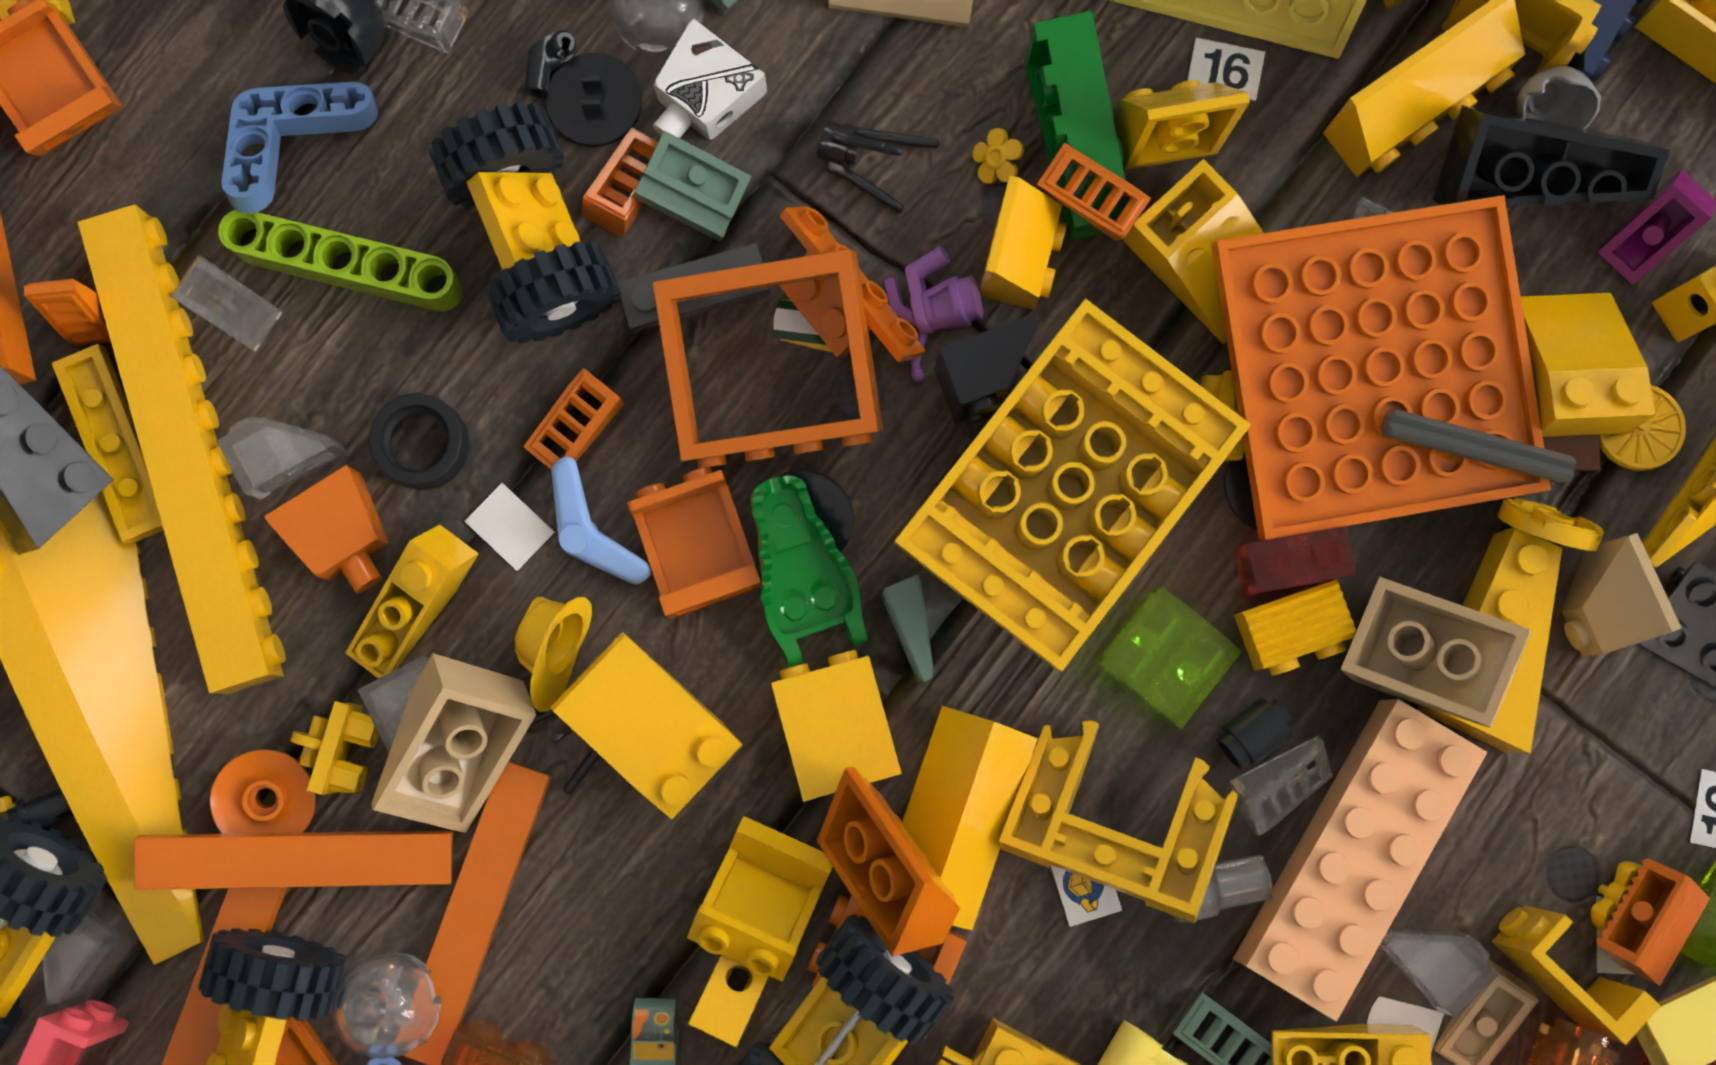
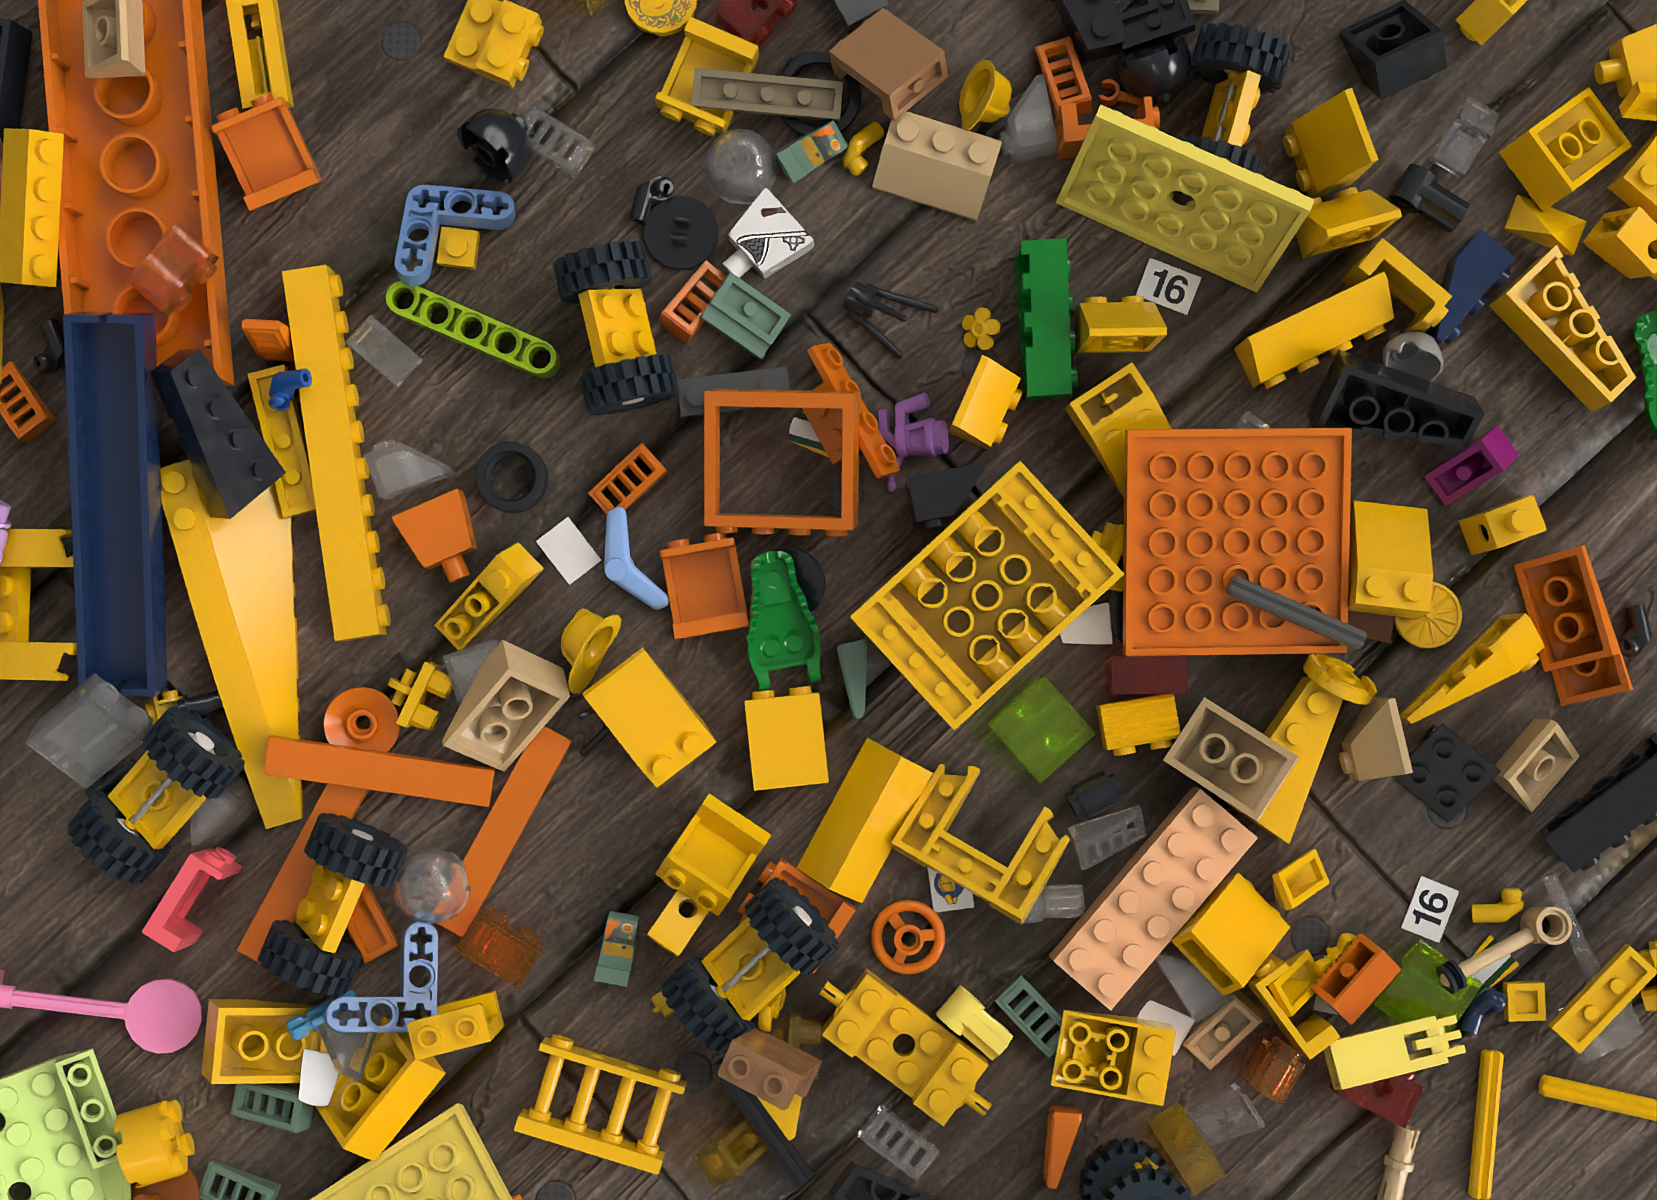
camera: 10 degrees right, 5 degrees up
(98, 369) = (284, 386): none -> blue arm
(309, 163) = (458, 248): none -> yellow plate
(885, 868) = (804, 848): orange slope -> none
(1033, 1003) = (897, 963): none -> orange piece
(1119, 188) = (1069, 394): orange slope -> none
(1208, 514) = (1090, 627): none -> white sticker
(1478, 891) = (1231, 934): none -> yellow brick
(1548, 803) = (1299, 880): none -> yellow slope
(1577, 947) = (1295, 985): none -> yellow slope

